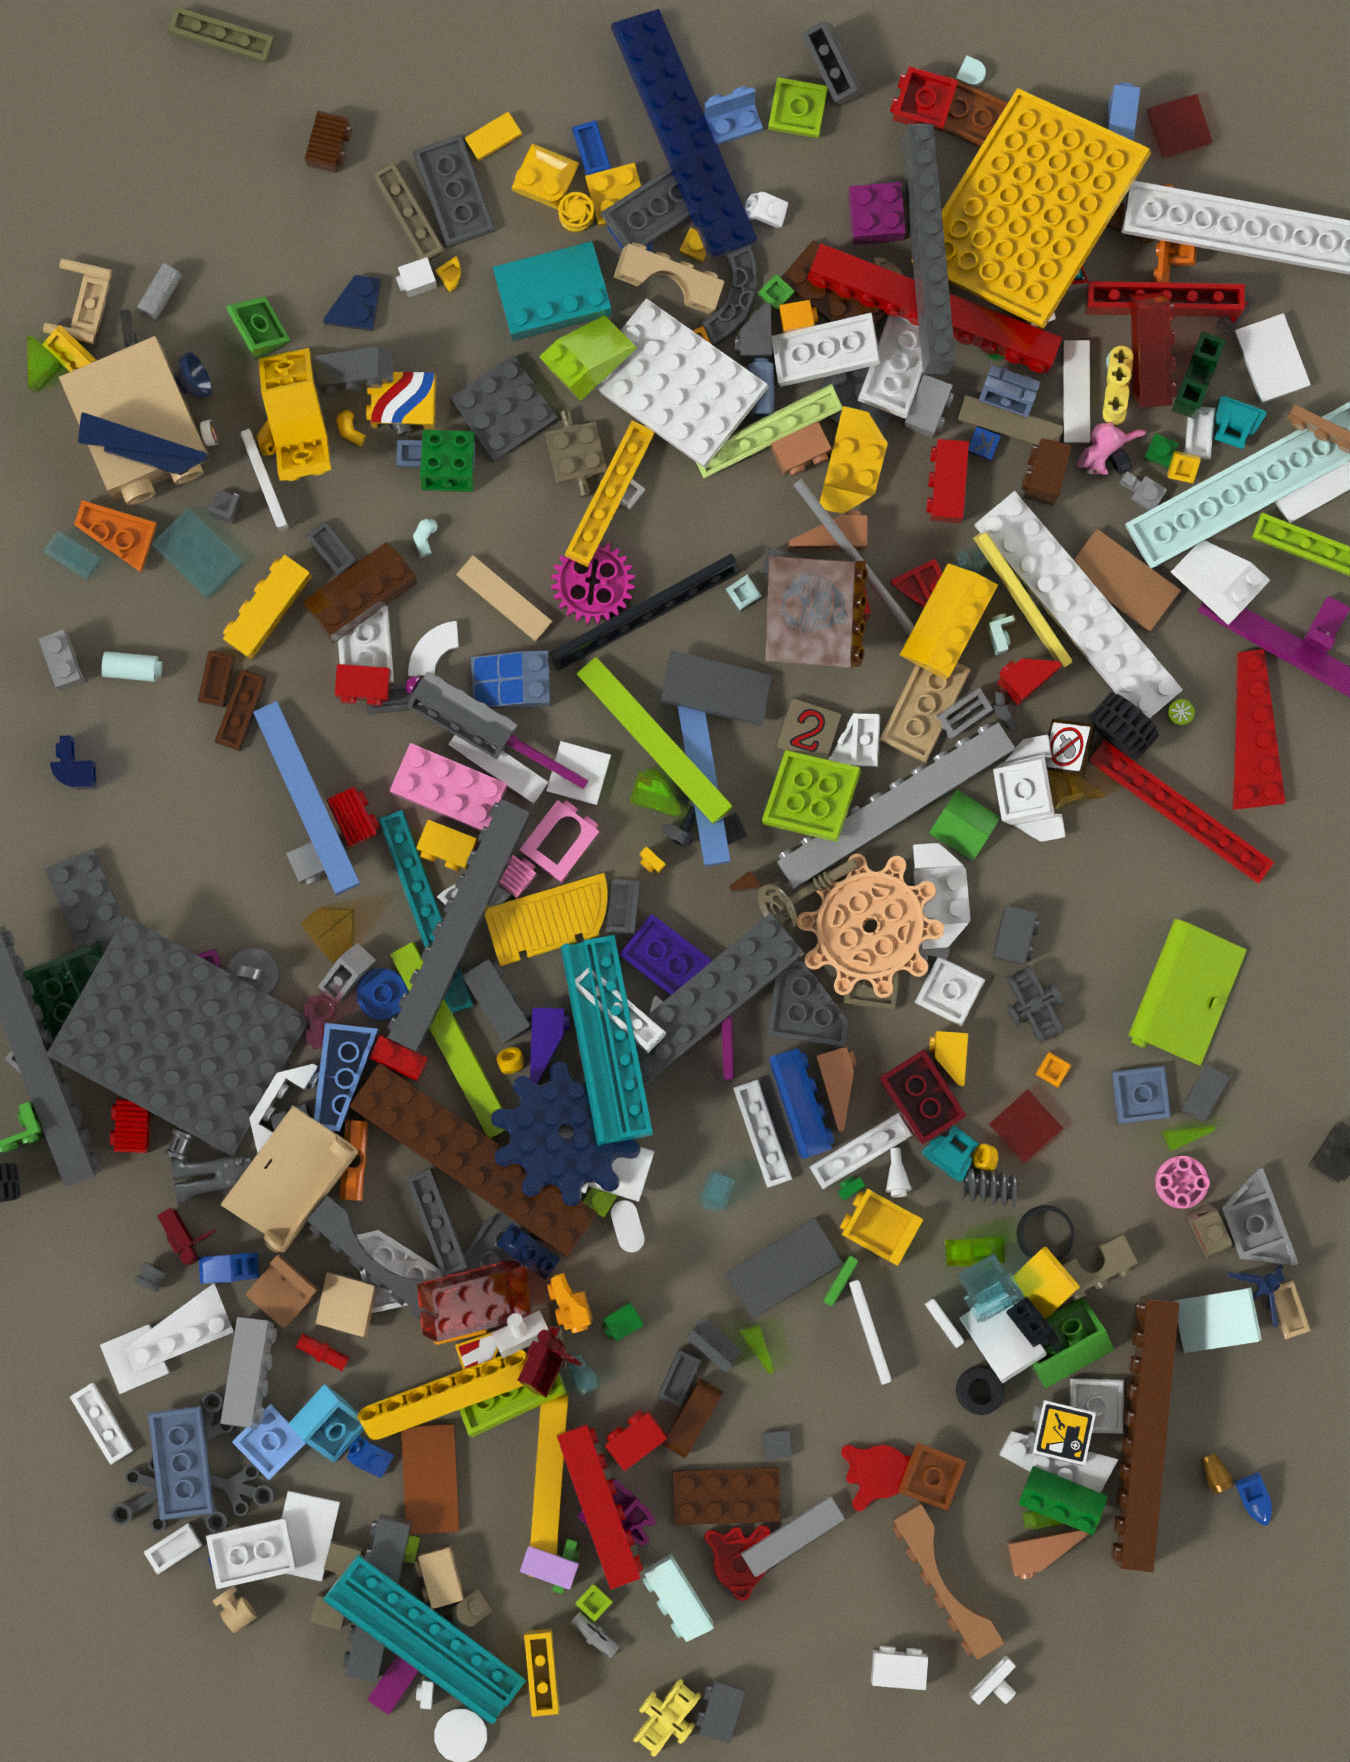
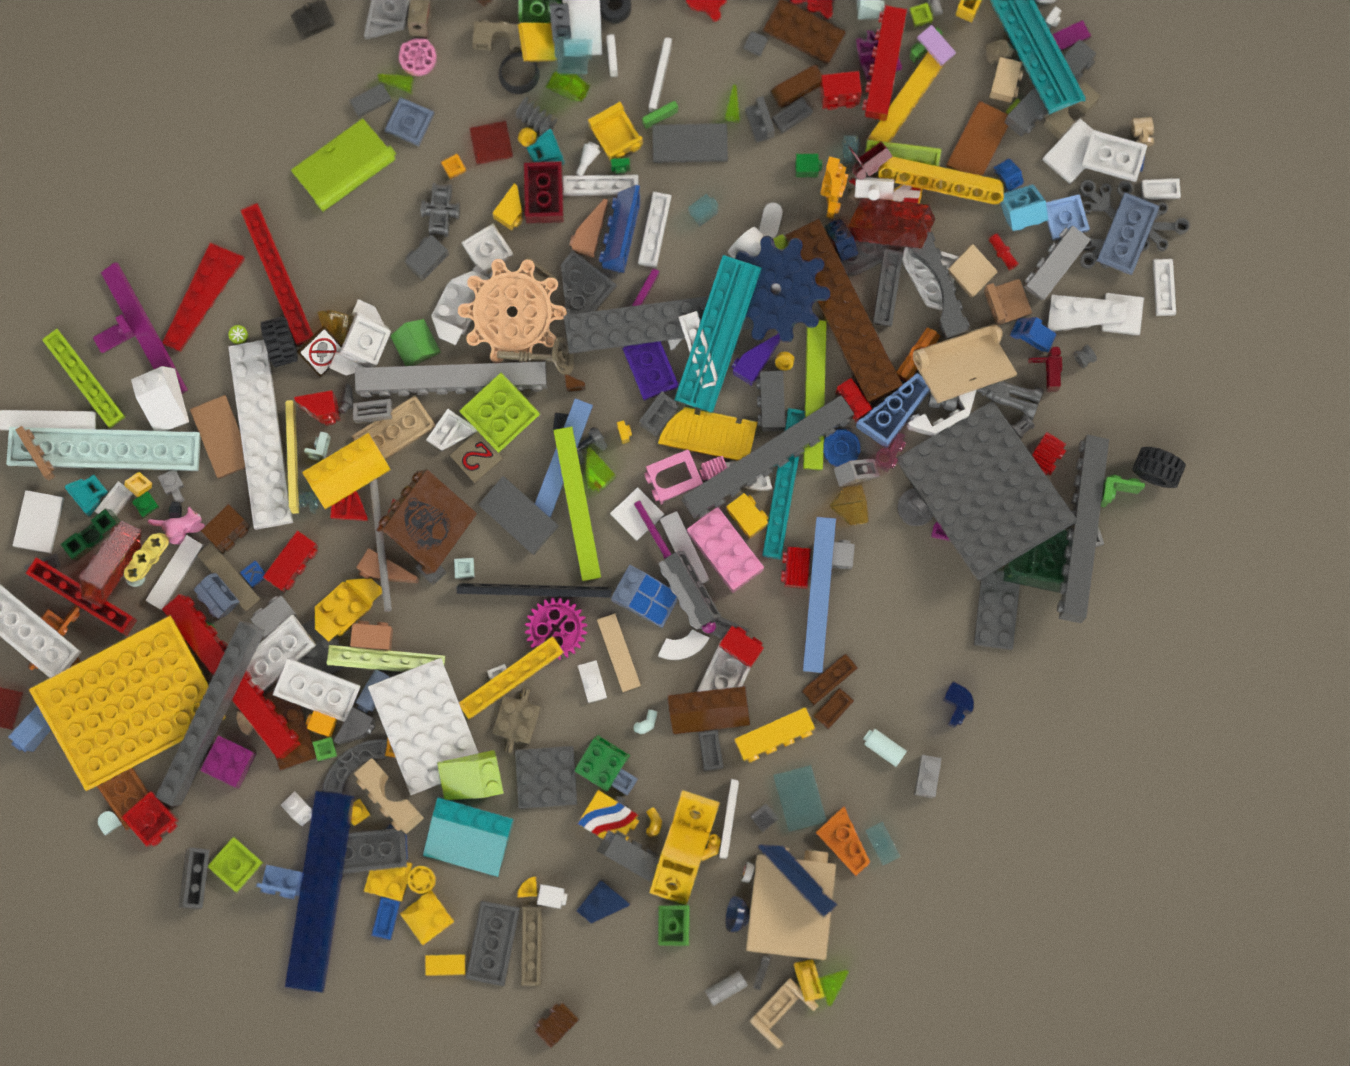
camera: 150 degrees left, 5 degrees down
(515, 547) = (592, 681): none -> white tile

